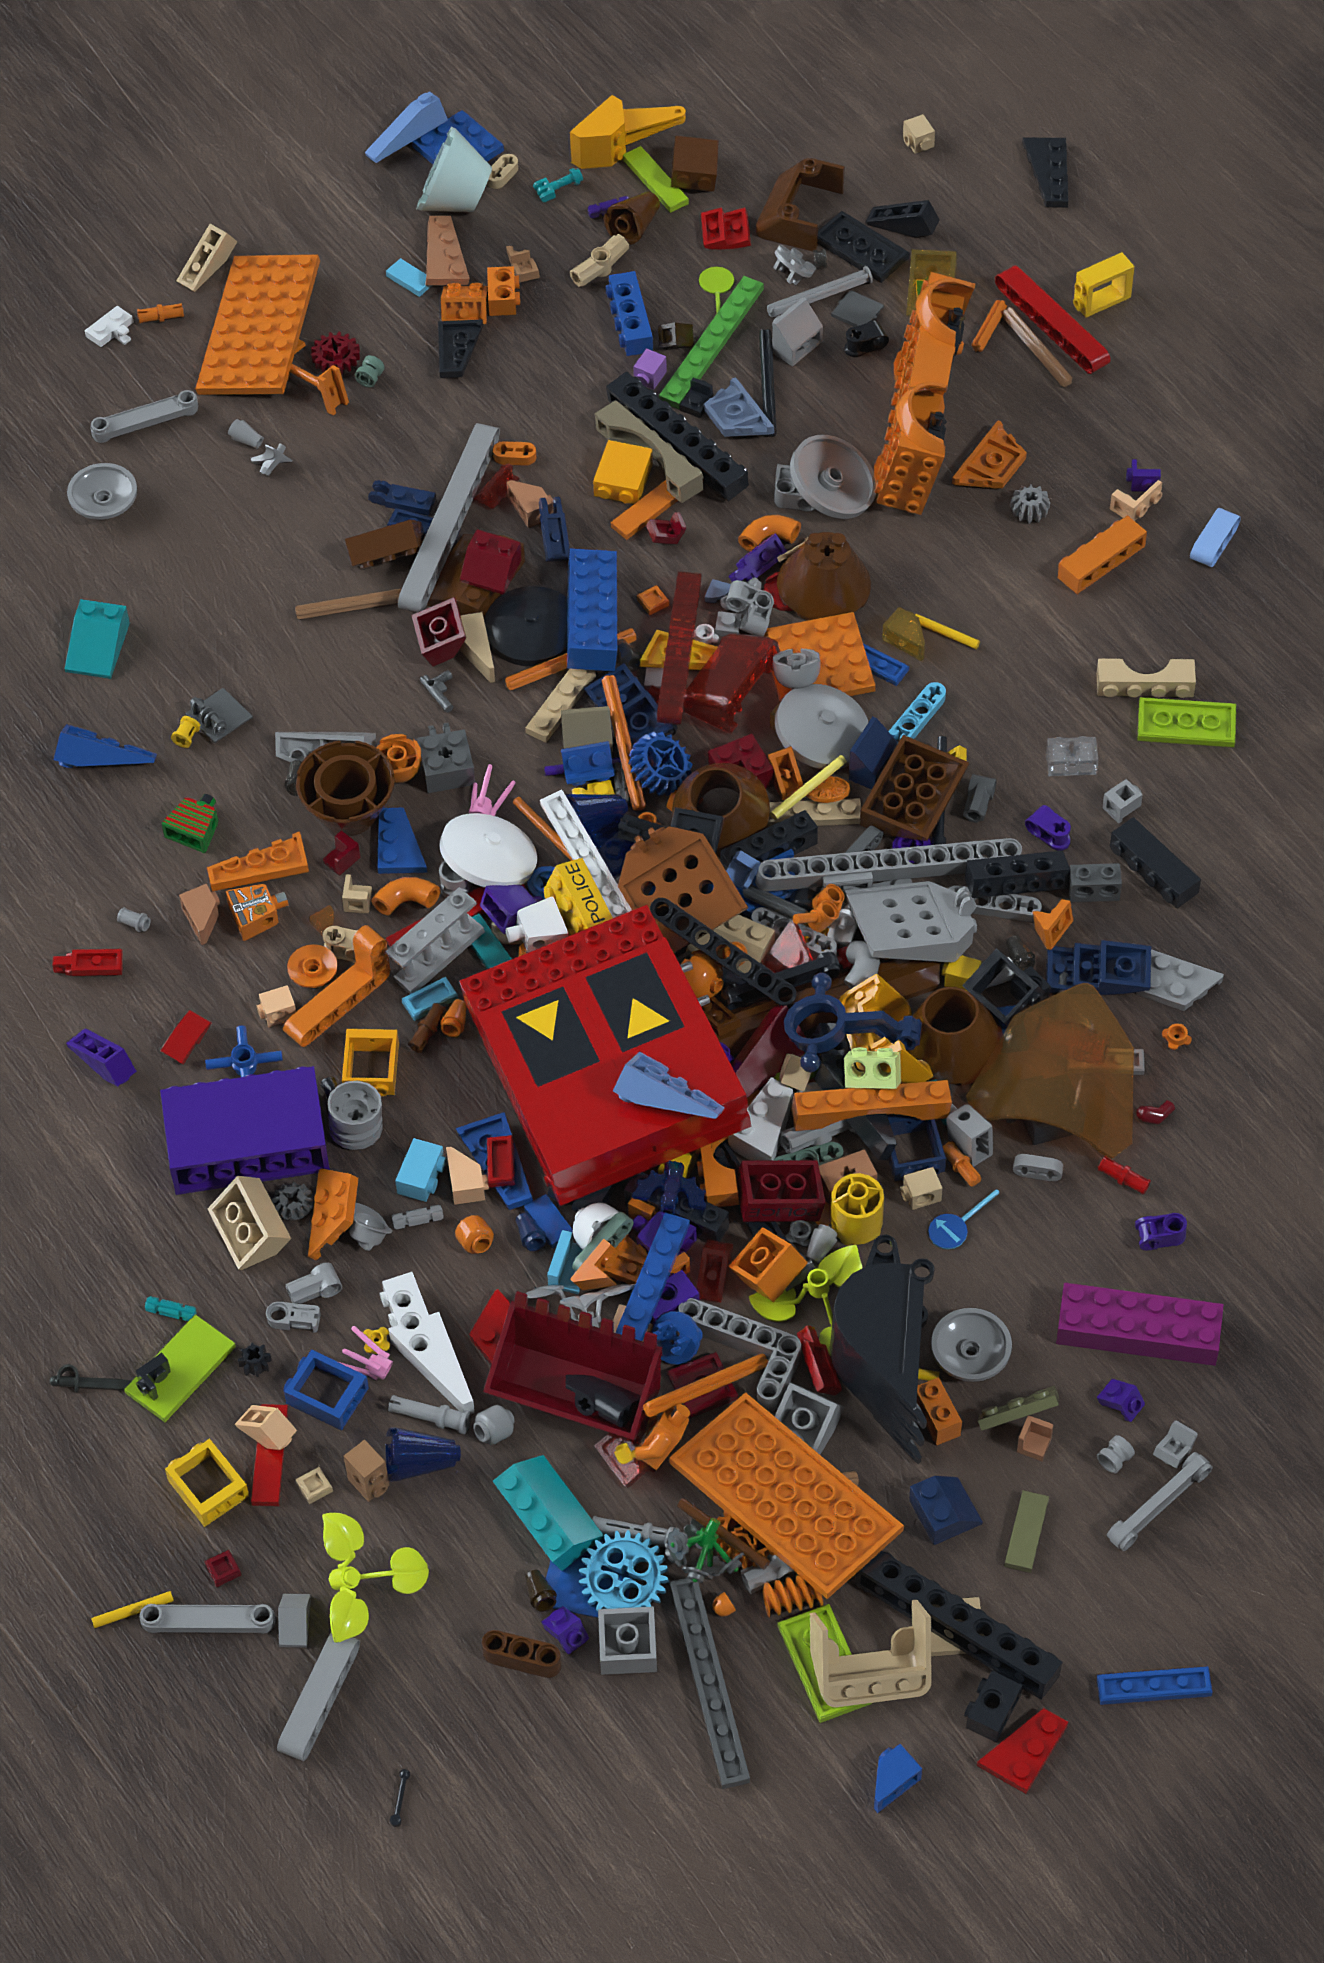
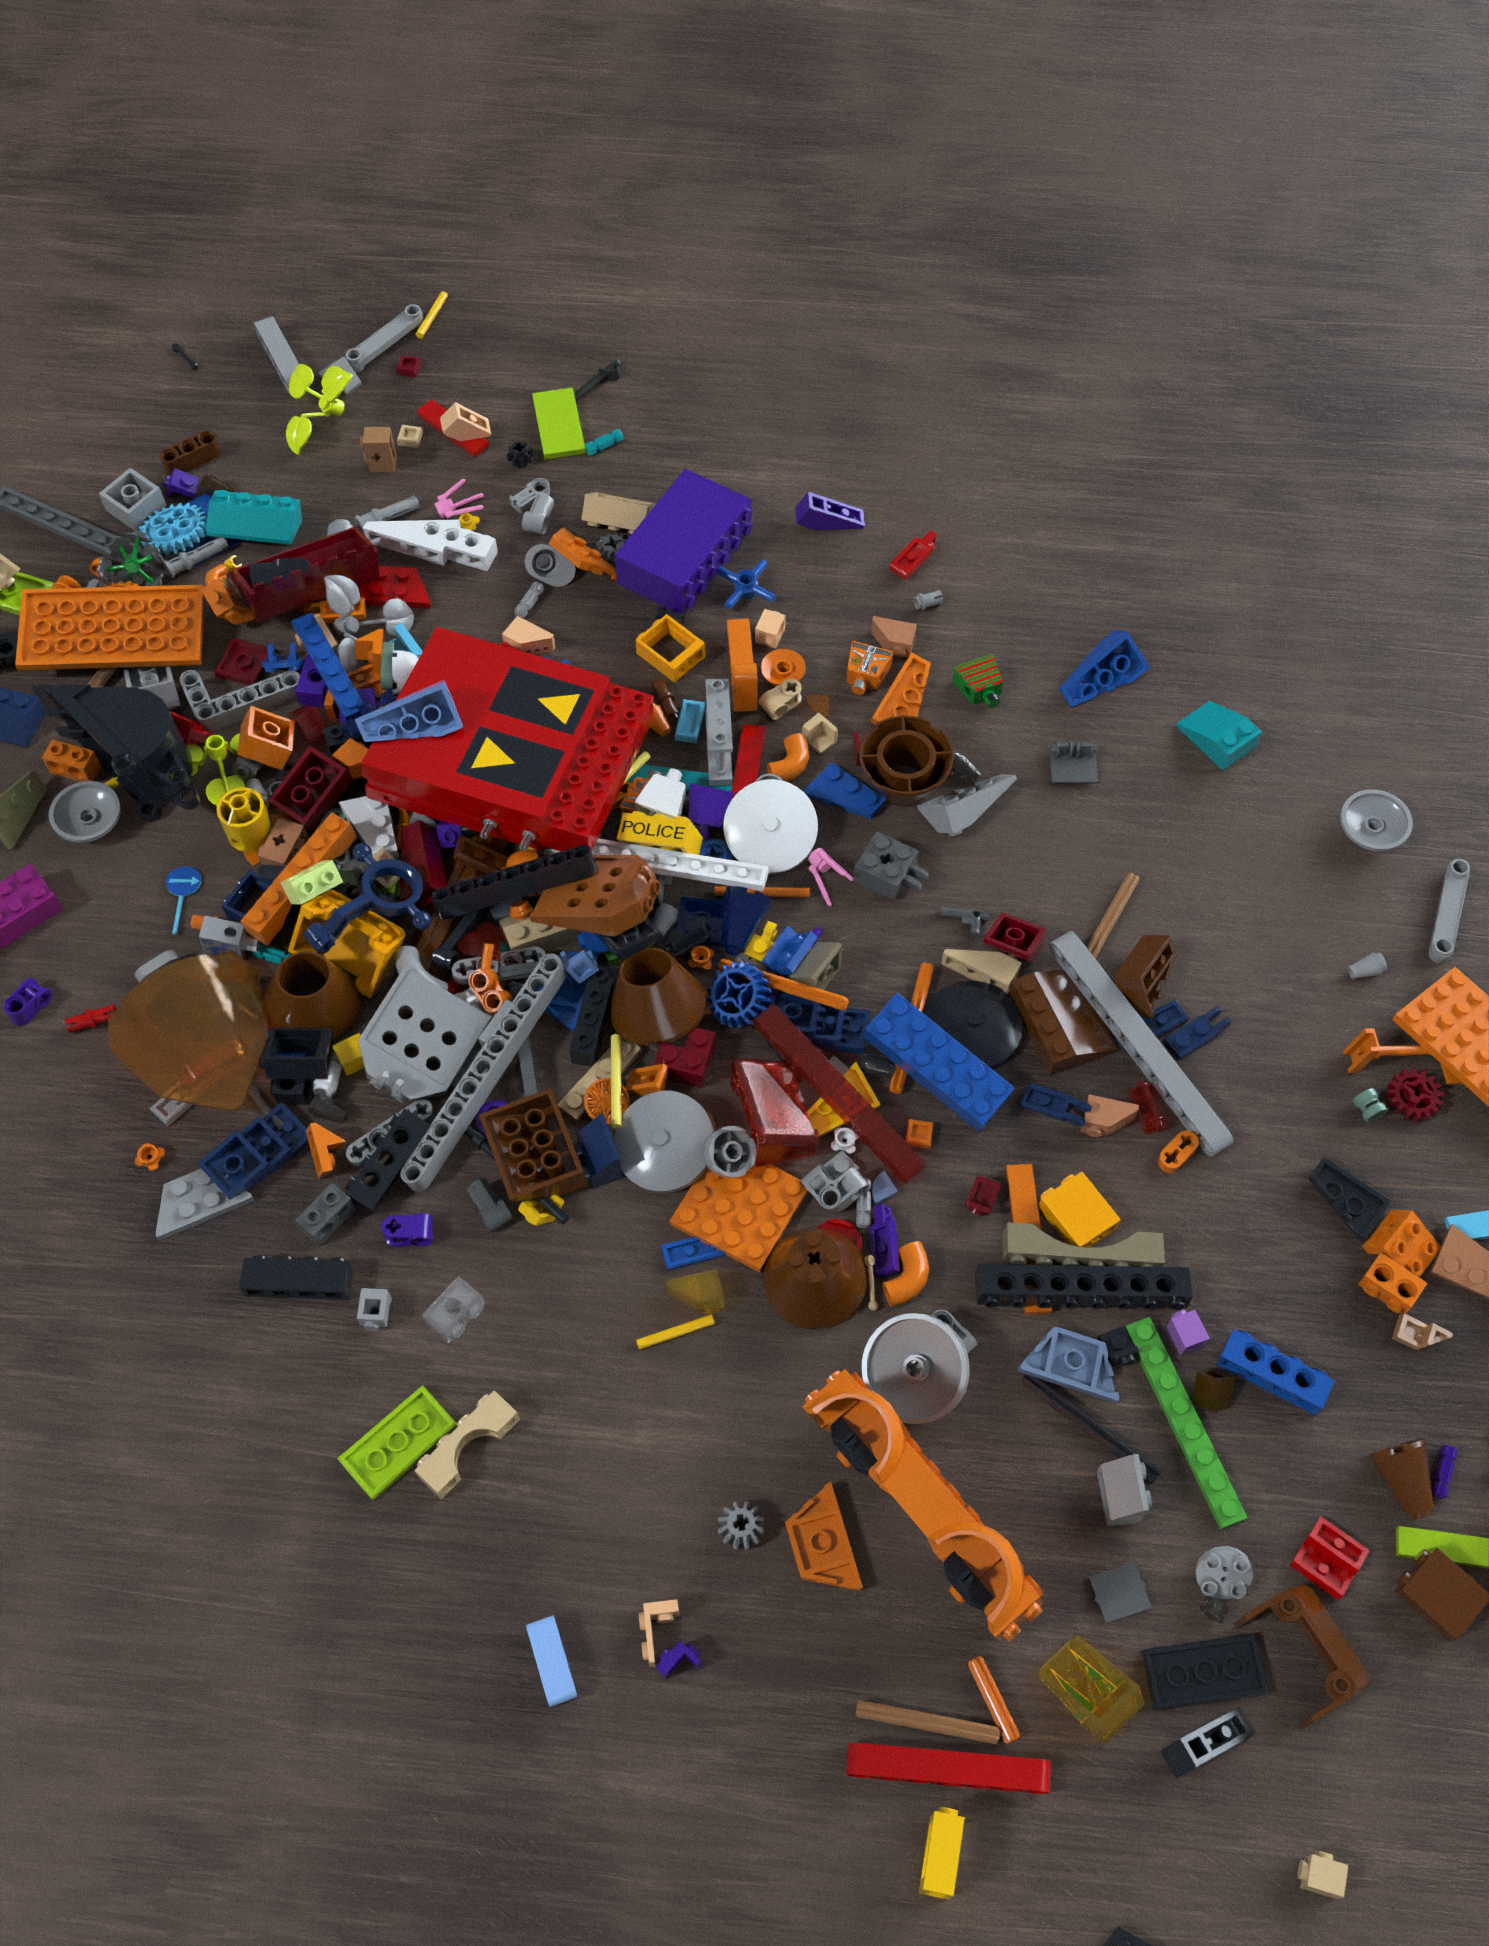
camera: 130 degrees right, 5 degrees up
(151, 1373) = (559, 392): black bracket -> none
(185, 732) = (1073, 729): yellow bush -> none
(186, 1036) = (798, 566): red slope -> none
(219, 1502) = (468, 398): yellow window -> none
(271, 459) = (1319, 964): light grey piece -> none
(347, 1403) = (455, 460): blue window -> none
(355, 1115) = (632, 604): light grey wheel -> none
(403, 756) = (913, 826): orange cylinder -> none
(418, 1453) = (364, 483): clear blue cone -> none
(420, 1170) = (556, 615): medium azure brick -> none
(474, 1234) = (479, 614): orange head -> none
(491, 561) = (1045, 1011): dark red slope -> none
(562, 698) = (870, 978): tan plate -> none
(600, 261) = (1371, 1416): tan piece -> none
(705, 1385) = (226, 635): orange axle -> none
(716, 281) = (1264, 1493): lime piece -> none
(724, 1534) = (133, 581): reddish brown bar -> none
(822, 291) = (1168, 1574): light grey axle -> none
(867, 336) = (1070, 1563): black piece -> none
(916, 718) = (613, 1228): medium azure beam -> none
(921, 1188) = (222, 882): tan brick -> none
(1102, 554) = (627, 1536): orange brick -> none
(1153, 1114) = (108, 1084): dark red arm -> none

